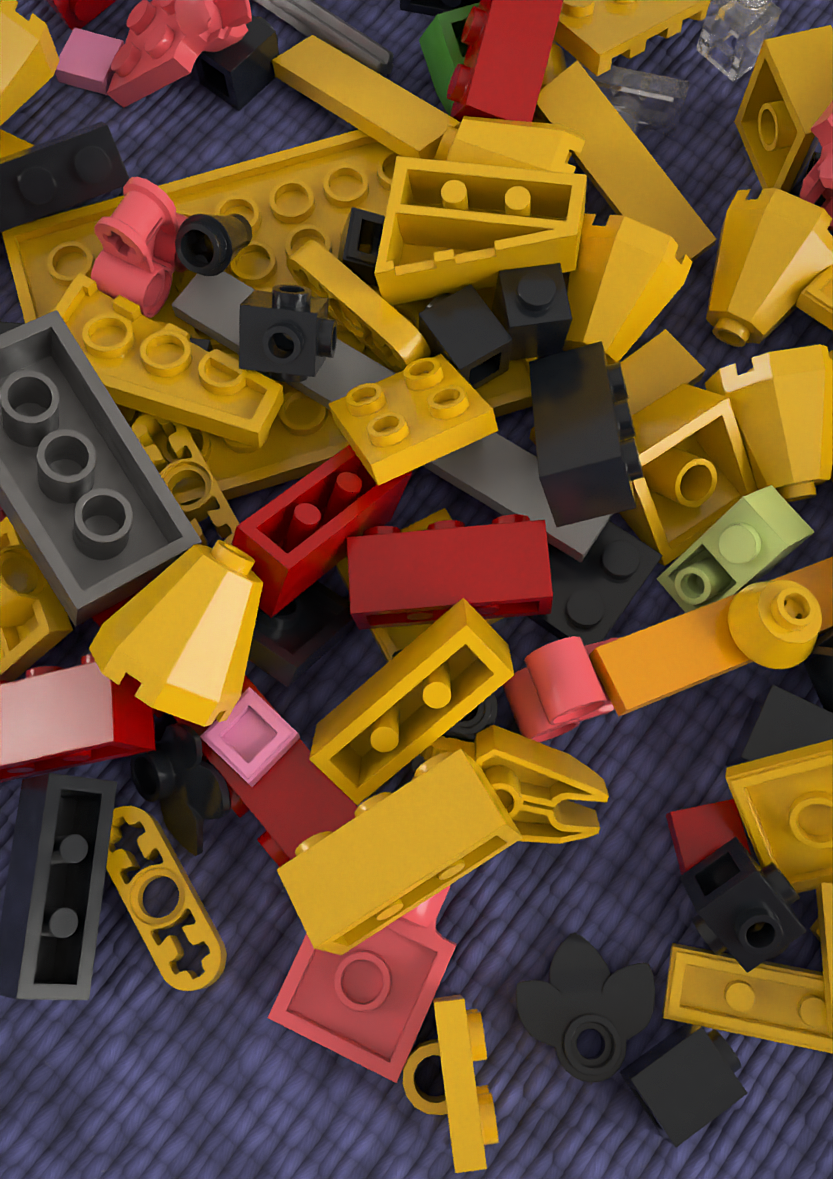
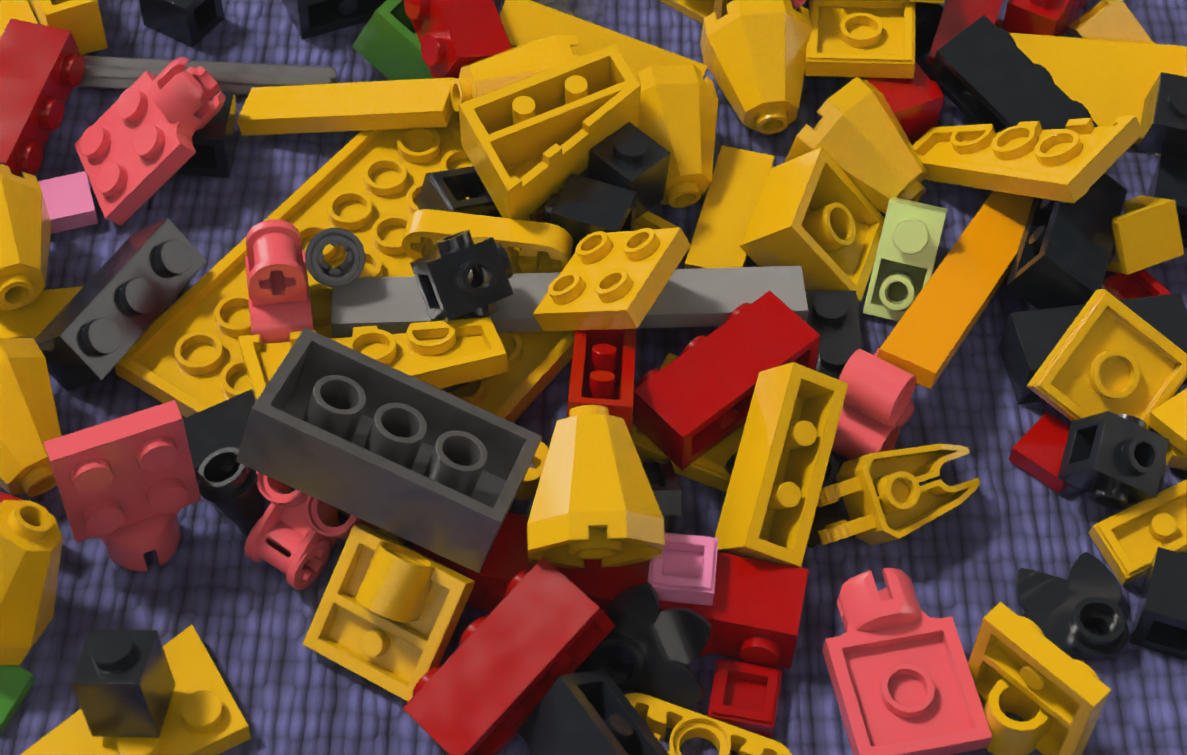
camera: 40 degrees left, 20 degrees down
(238, 875) = (745, 696): none -> red tile
(397, 852) = (867, 554): yellow brick -> none
(582, 434) = (745, 222): black brick -> none
(775, 623) = (980, 265): yellow cone -> none

